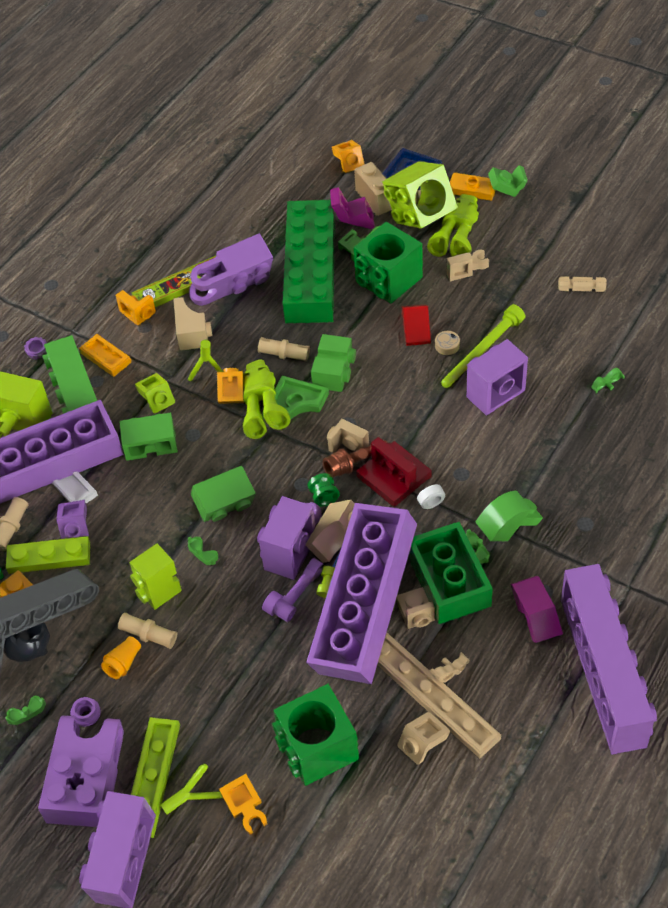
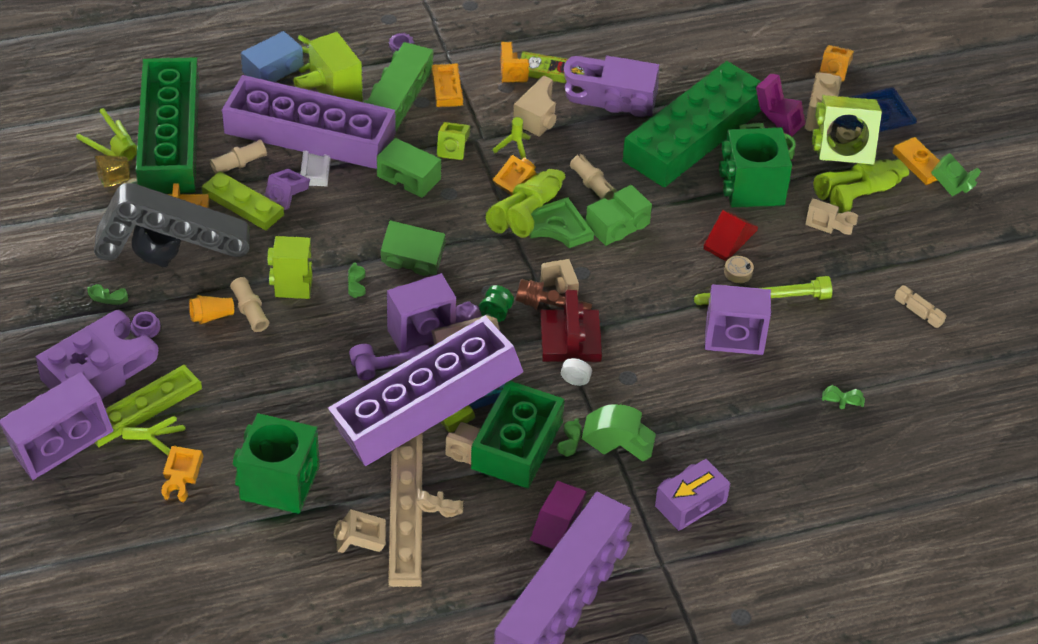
camera: 35 degrees right, 5 degrees down
(599, 522) = (692, 494): none -> medium lavender brick

